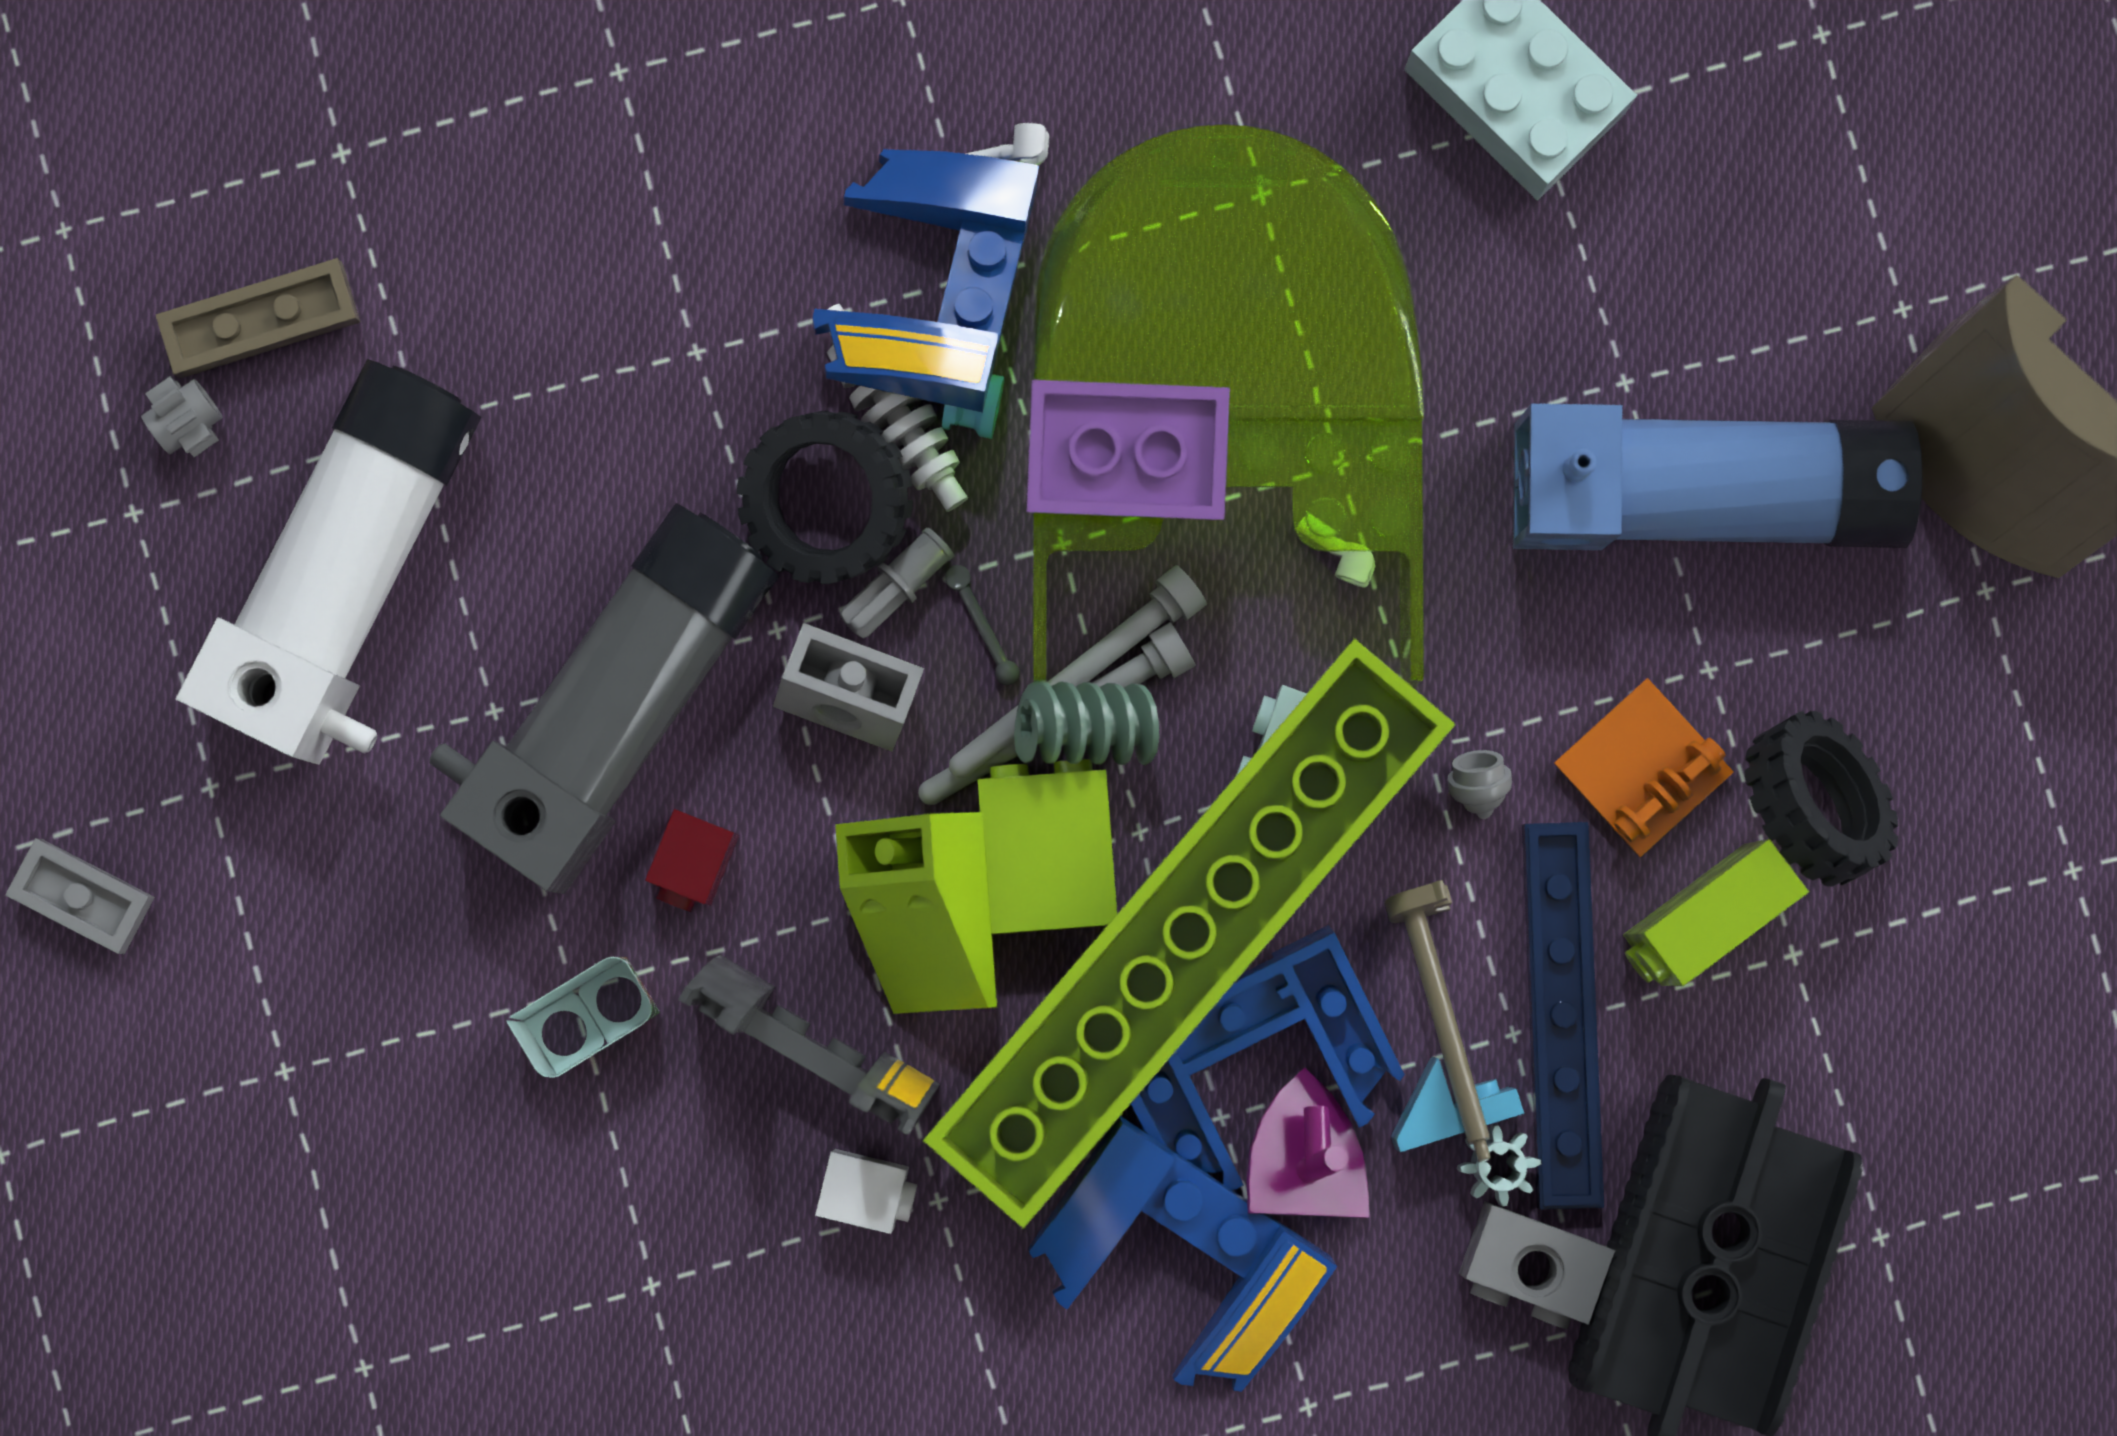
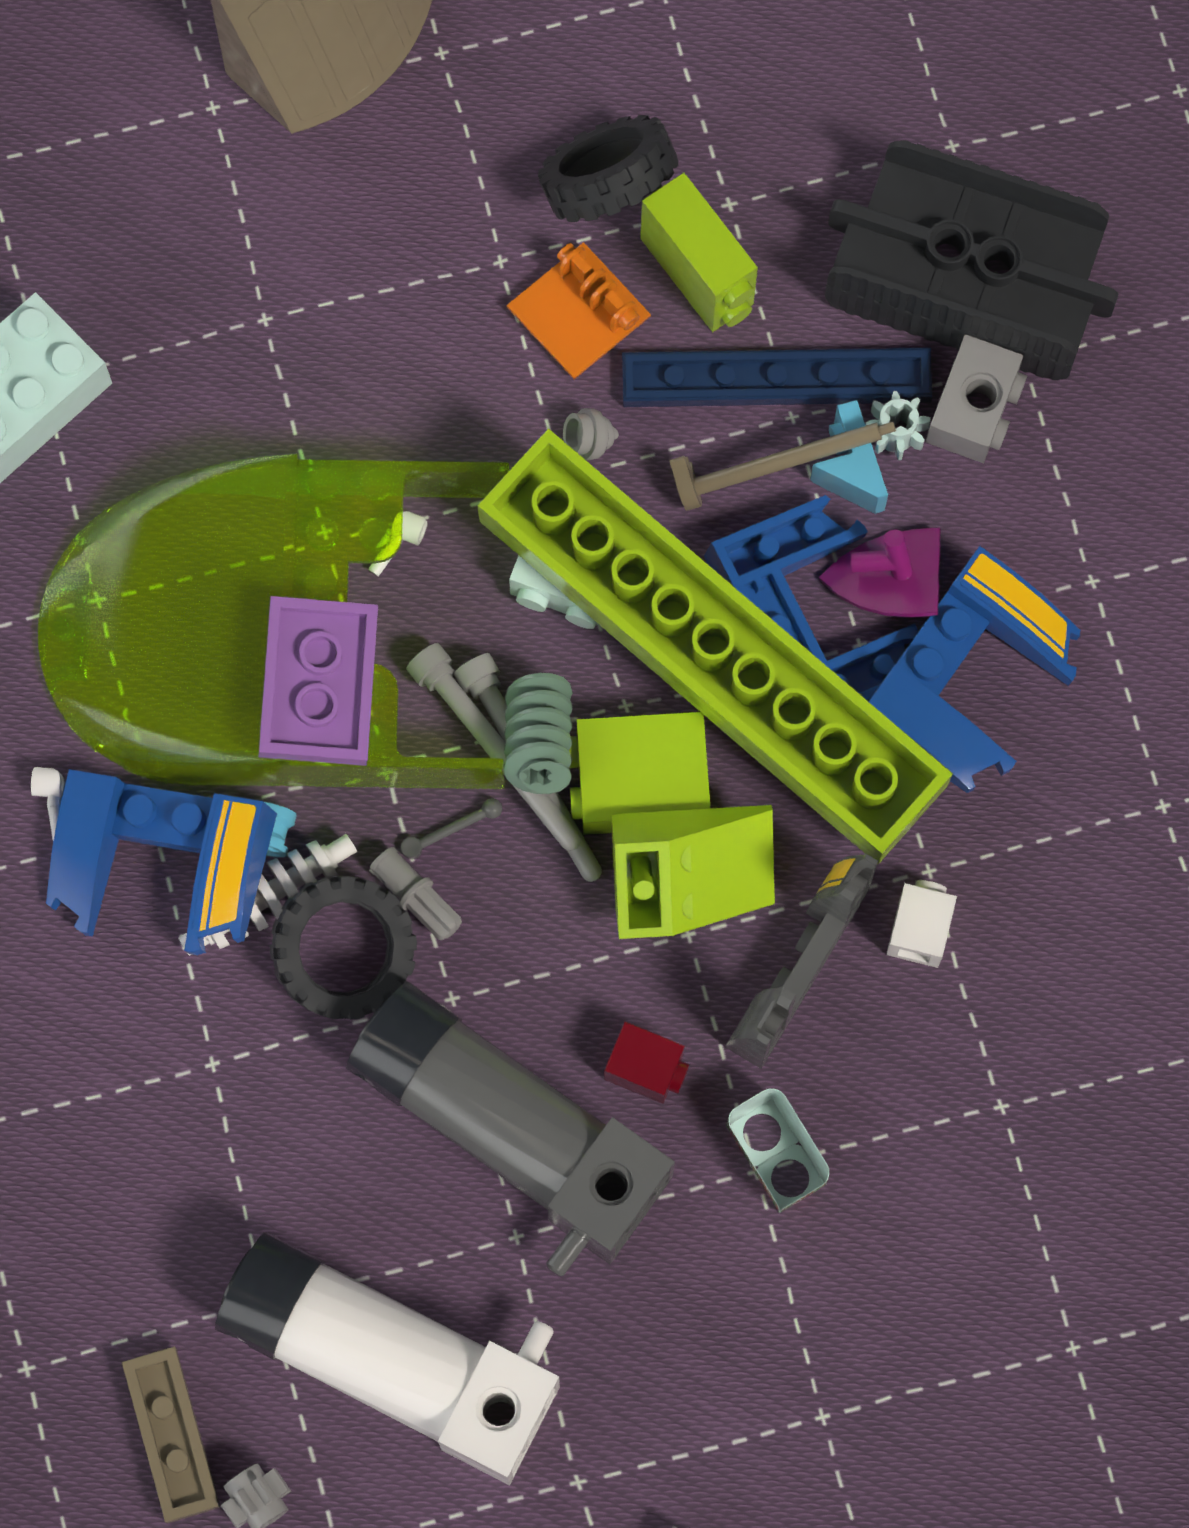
camera: 90 degrees left, 10 degrees down
(848, 687) = (504, 929): light grey brick -> none
(1607, 478) = (347, 312): medium blue piece -> none

